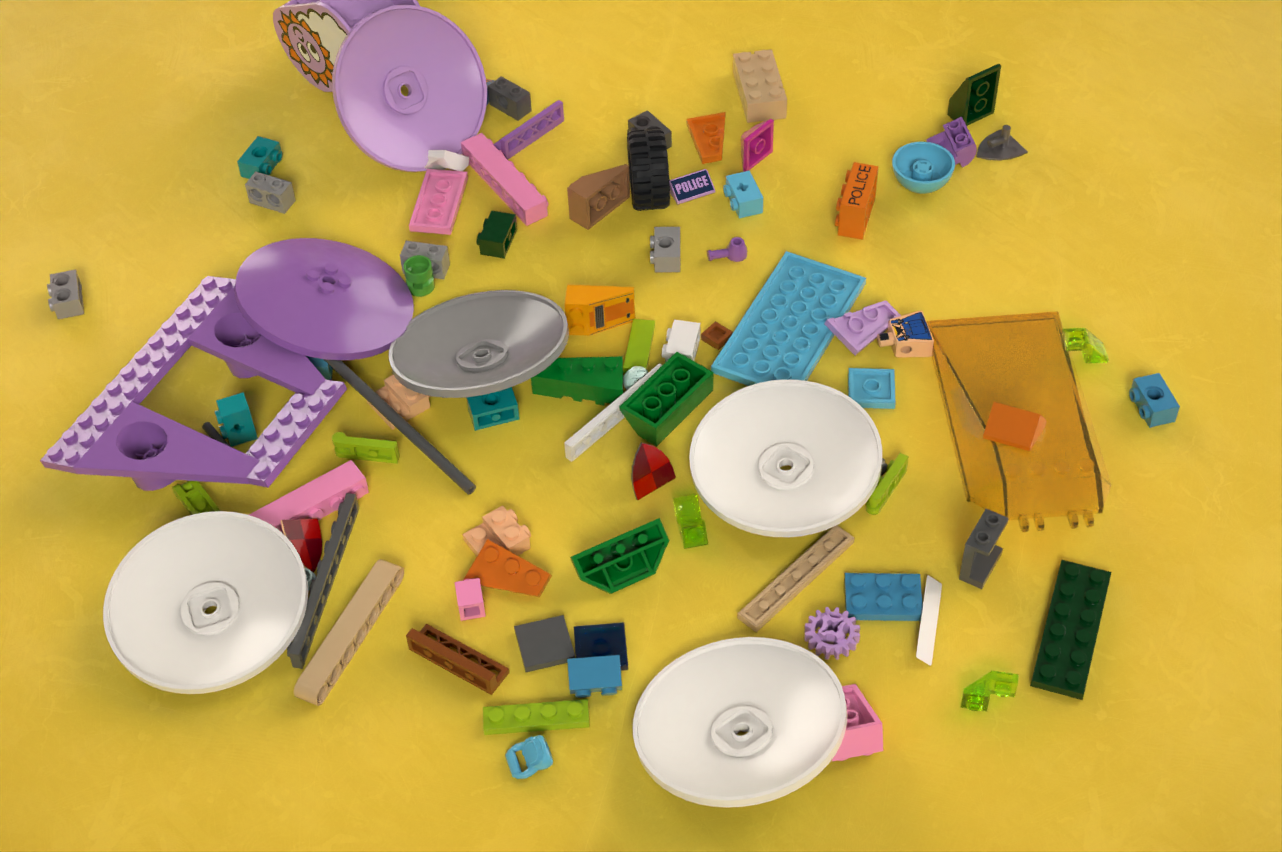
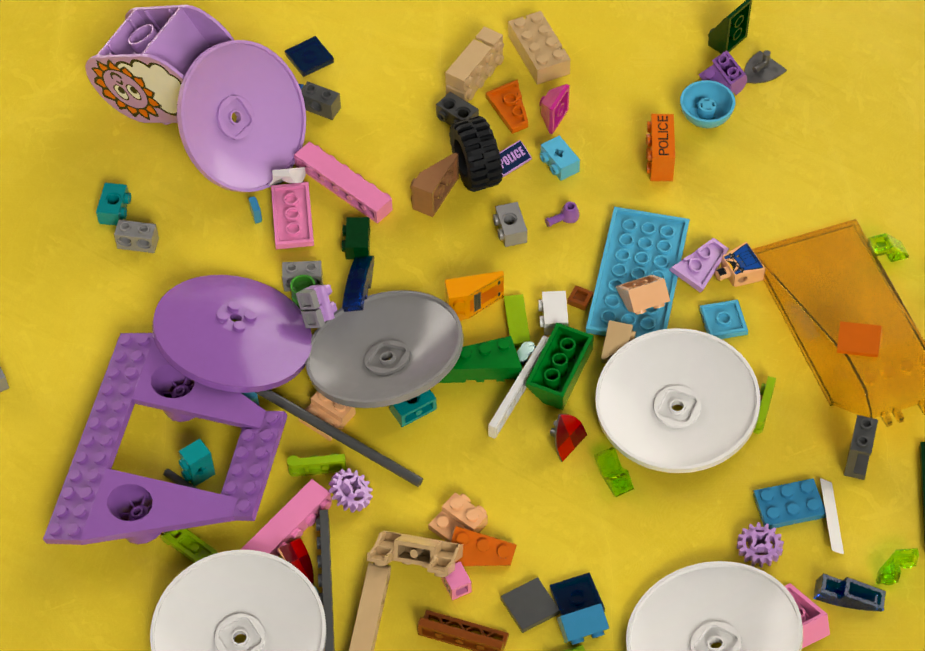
camera: 15 degrees left, 5 degrees up
(383, 470) = (350, 490): none -> lavender gear
(402, 189) = (255, 209): none -> dark azure tile
(425, 287) = (316, 305): none -> hips
(449, 563) = (409, 549): none -> tan bracket
(479, 277) = (358, 283): none -> clear blue slope
(517, 58) = (309, 56): none -> clear blue tile
(531, 130) = (349, 128): medium lavender fence -> none
(623, 558) = (571, 516): green wedge -> none
(683, 89) = (475, 64): none -> tan piece
(739, 377) = (616, 336): none -> tan slope
(786, 341) = (644, 294): none -> light nougat slope
(795, 578) = (714, 503): tan tile -> none
(921, 710) = (849, 593): none -> slope

